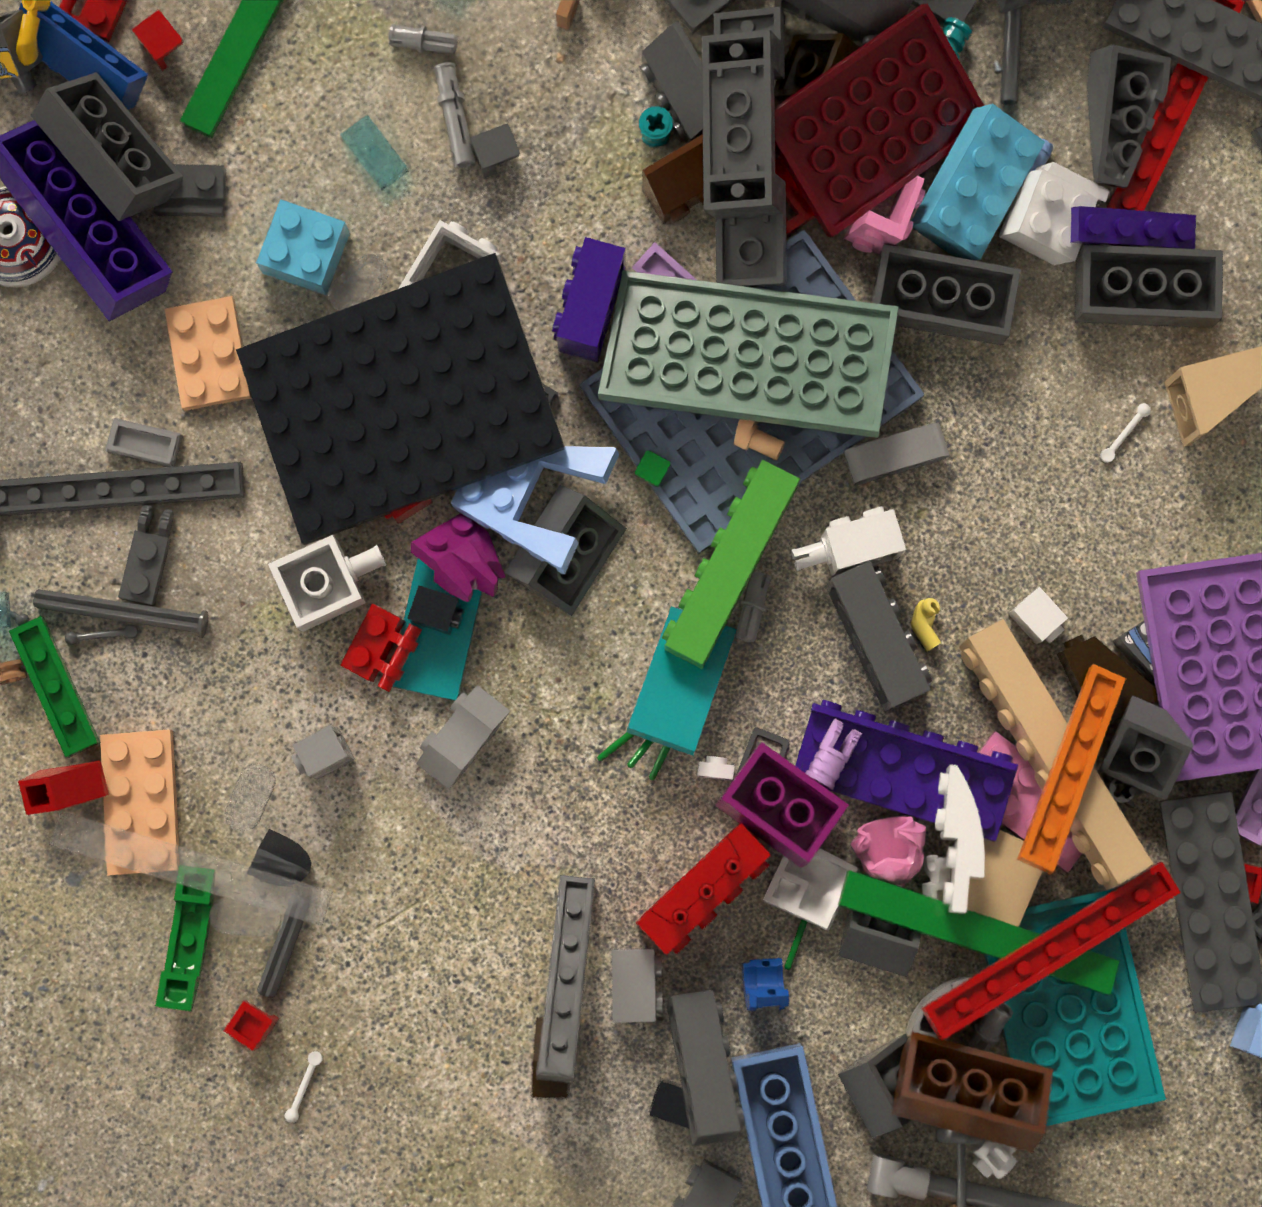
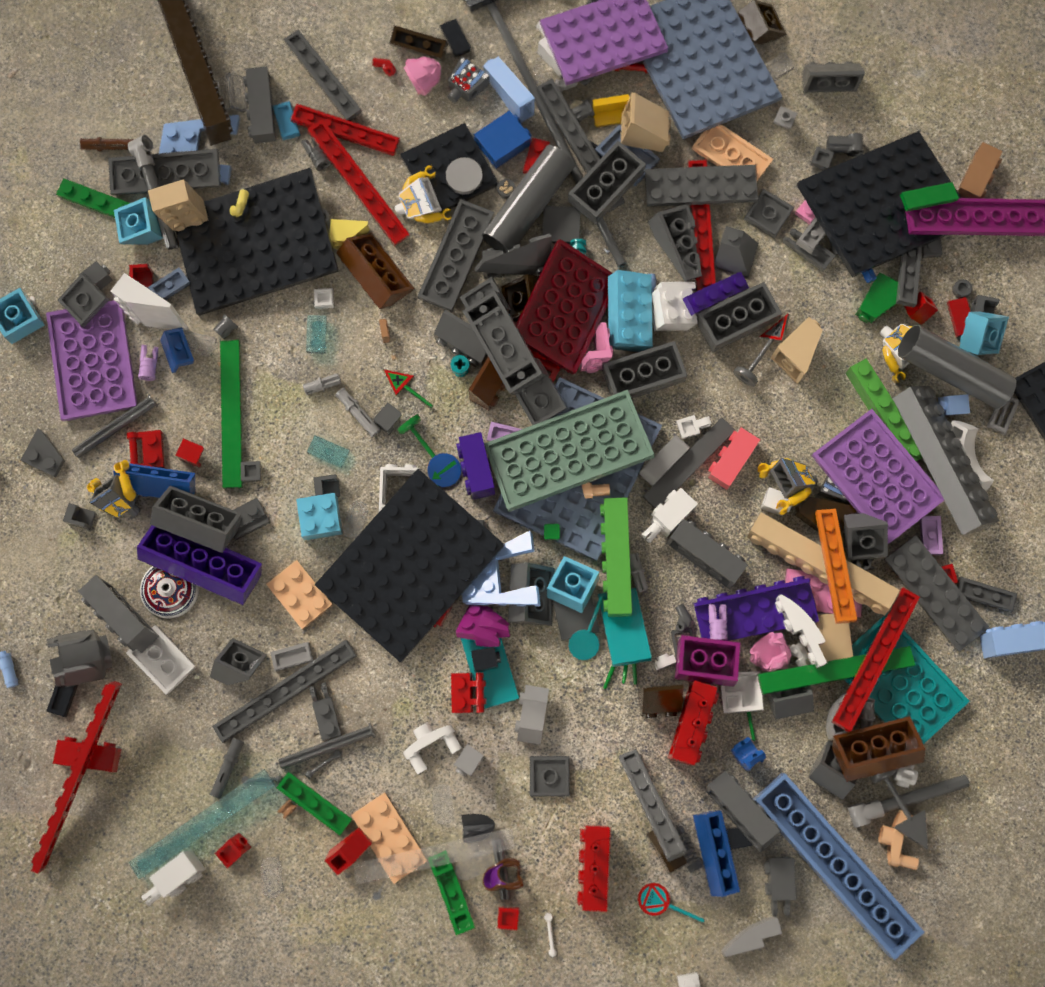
camera: 30 degrees left, 5 degrees down
(52, 405) = (236, 663): none -> dark grey slope
(237, 119) = (251, 471): none -> dark grey plate
(259, 953) = (493, 881): none -> reddish brown piece
(279, 680) = (425, 737): none -> white connector
(322, 581) = (420, 675): white brick -> none
(342, 204) = (326, 485): none -> dark grey panel
(424, 1025) = (594, 868): none -> red piece
(437, 846) = (549, 776): none -> dark grey tile
(493, 1125) = (655, 899): none -> piece
(537, 275) = (442, 468): none -> blue piece
(548, 100) = (399, 381): none -> piece
(589, 1108) = (695, 865): none -> dark grey piece
(606, 671) = (585, 643): none -> teal piece
(616, 624) = (571, 620): none -> dark grey tile
(626, 1108) = (716, 853): none -> blue brick
(634, 985) = (685, 790): light grey brick -> none
(638, 569) = (572, 584): none -> medium azure brick
(673, 827) = (661, 700): none -> dark brown slope
(785, 721) = (684, 619): none -> dark grey arm
(923, 621) = (722, 534): light yellow arm -> none
(937, 478) = (689, 462): none -> dark grey tile
(968, 422) = (690, 426): none -> white plate
(1009, 508) = (733, 458): none -> coral brick
(1083, 596) = (793, 480): none -> torso
(1108, 454) = (764, 406): white hinge -> none
(1193, 345) = (776, 333): none -> dark grey piece
(1206, 179) = (736, 252): none -> dark grey slope

